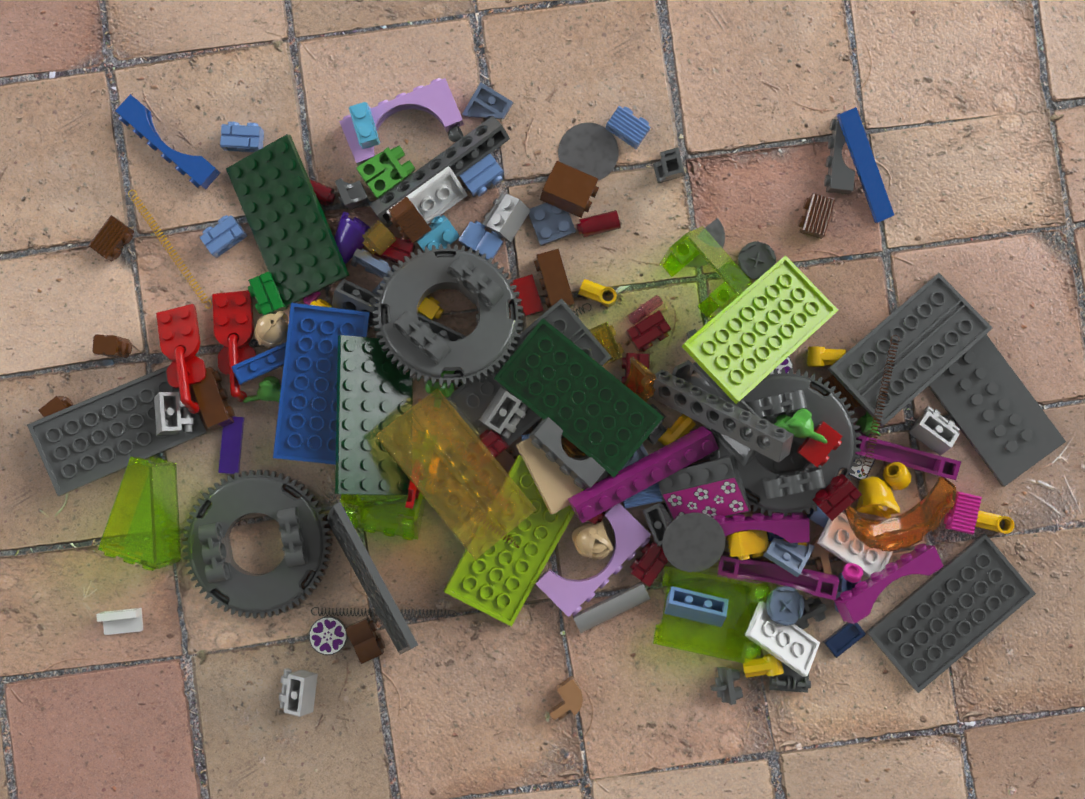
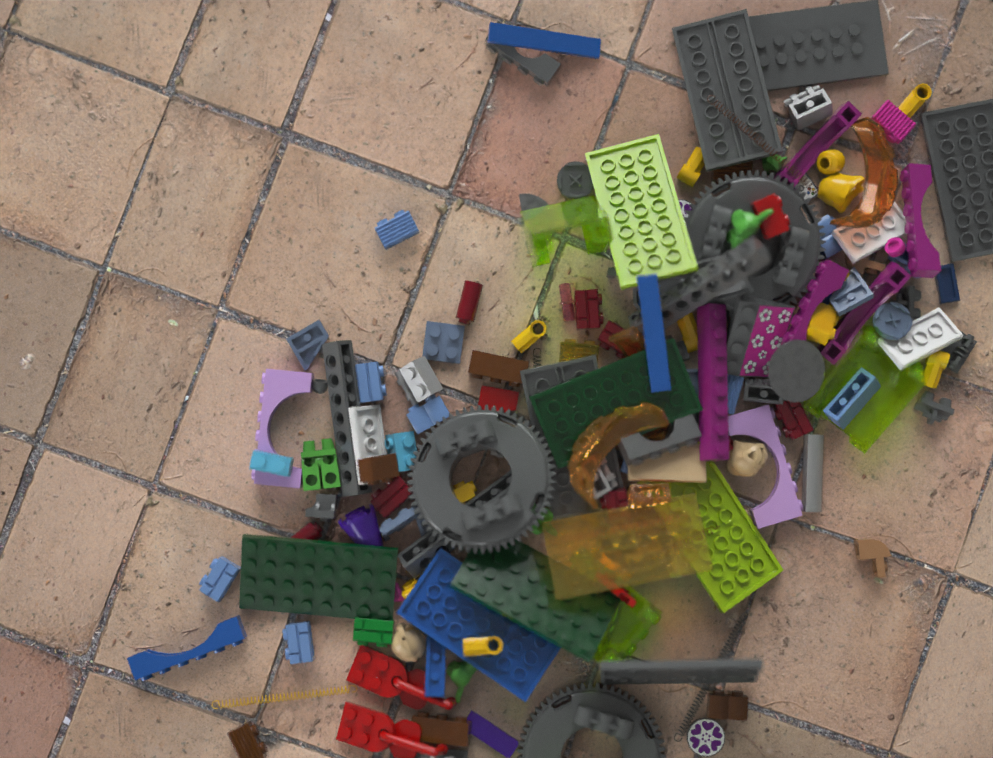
camera: 65 degrees left, 0 degrees up
(299, 390) = (479, 646): none -> yellow piece
(378, 238) = (381, 505): clear yellow brick -> none
(508, 472) = (642, 501): none -> clear orange slope
(540, 400) = (602, 437): none -> clear orange windscreen
(569, 189) = (425, 311): reddish brown brick -> none
(589, 149) = (398, 276): flat silver sticker -> none
(658, 395) = (653, 332): none -> blue tile
(670, 166) = (451, 211): dark grey brick -> none
(816, 215) = (564, 107): reddish brown brick -> none
(836, 496) = (823, 226): dark red brick -> none

